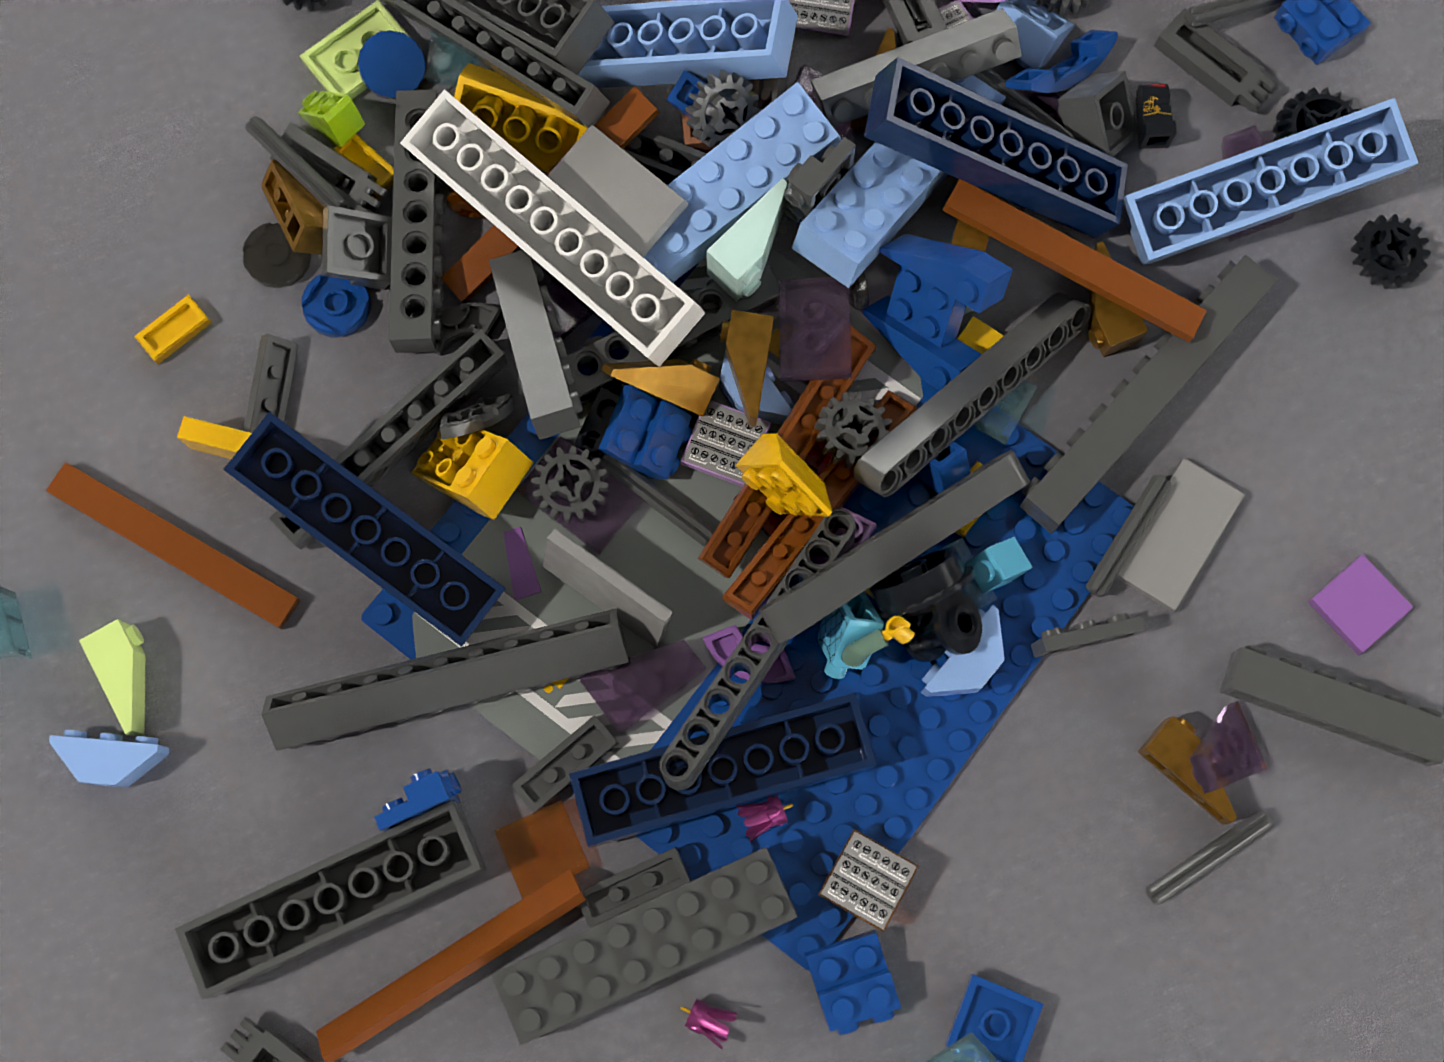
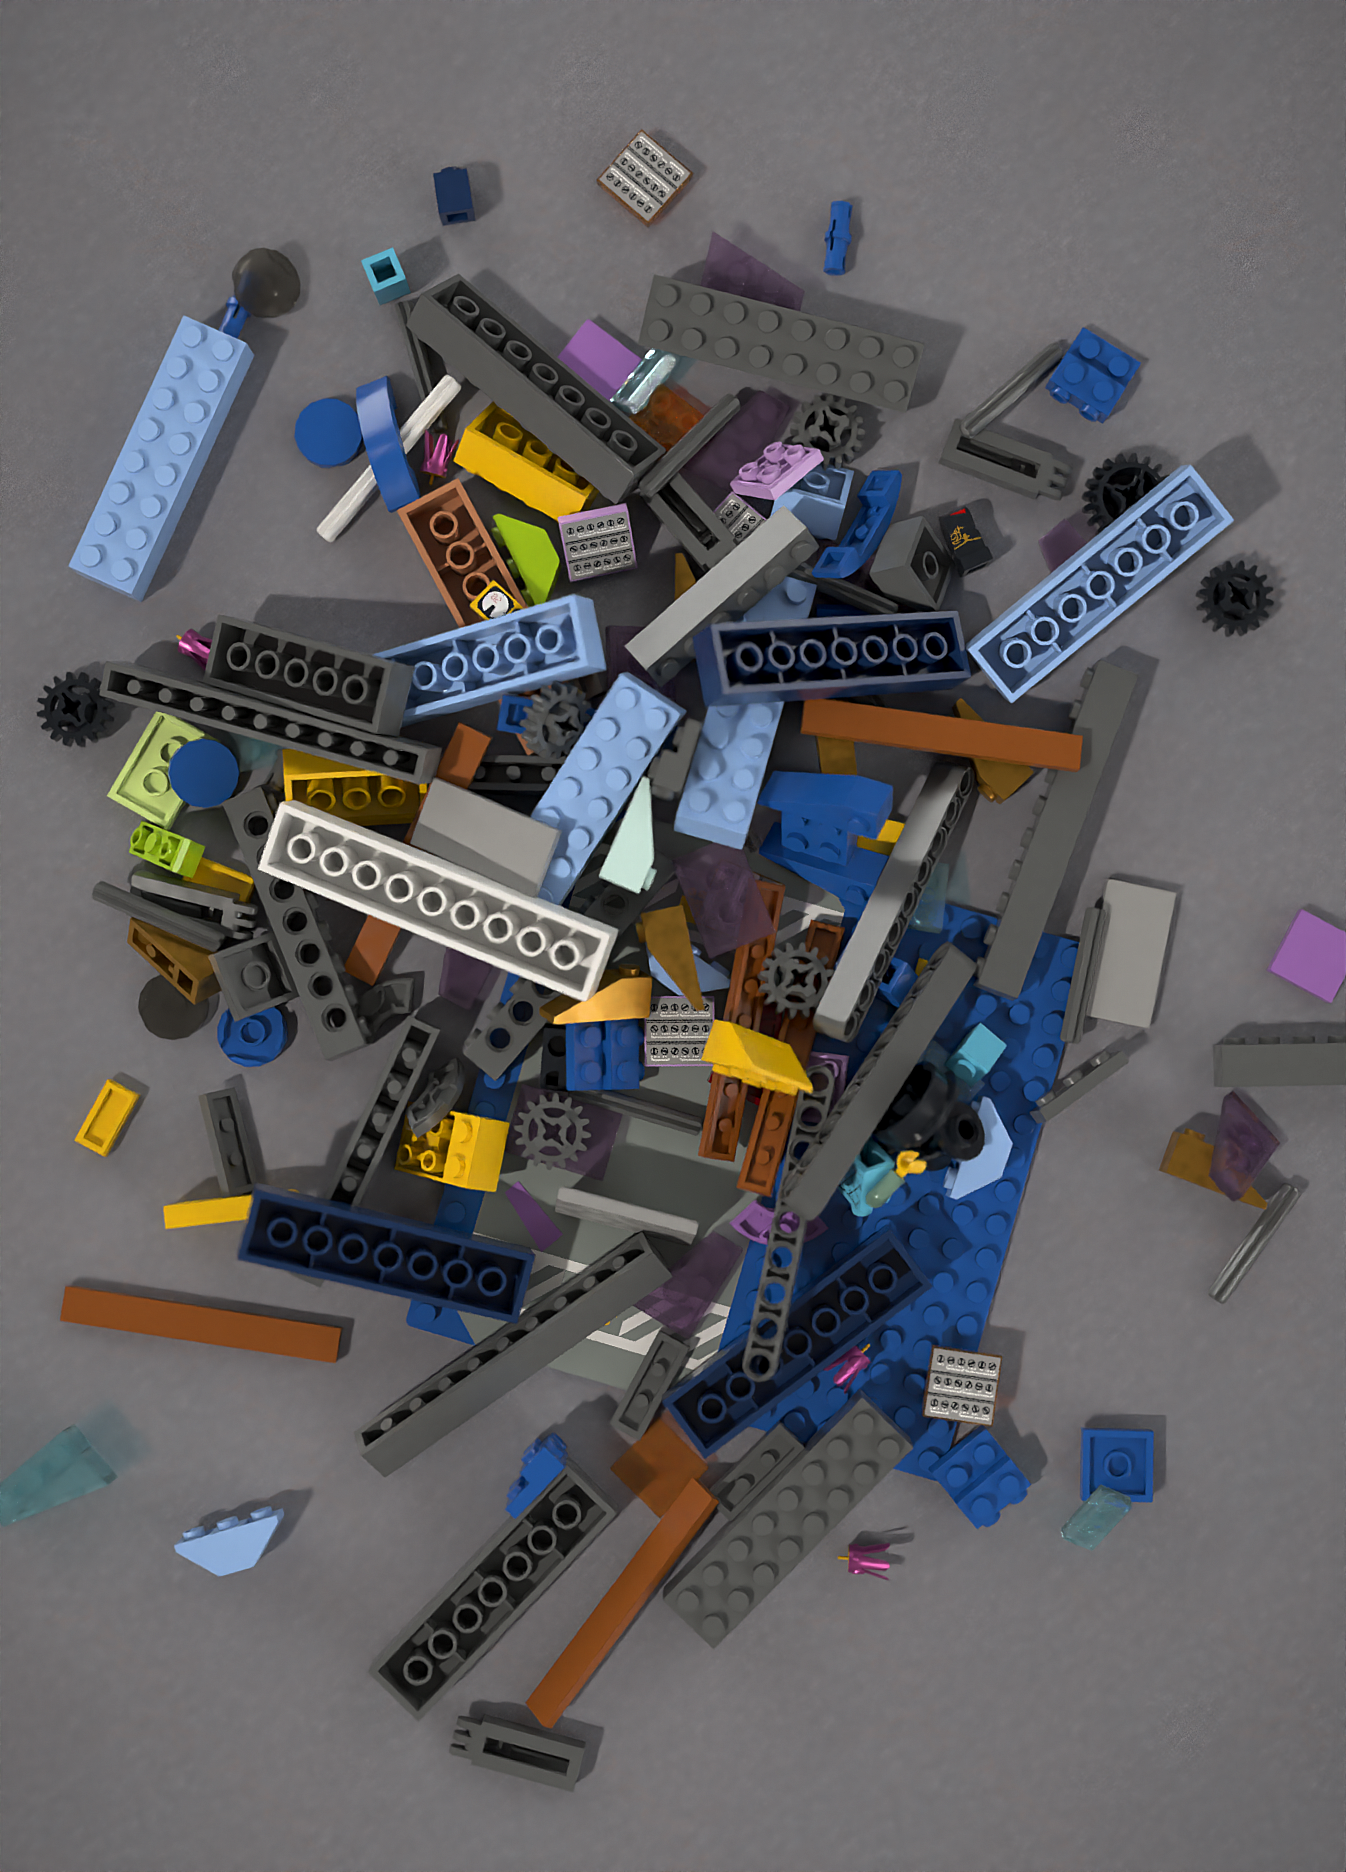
camera: 20 degrees left, 10 degrees up
(120, 668) = (206, 1457): yellowish green slope -> none
(534, 344) = (468, 1016): brick -> none

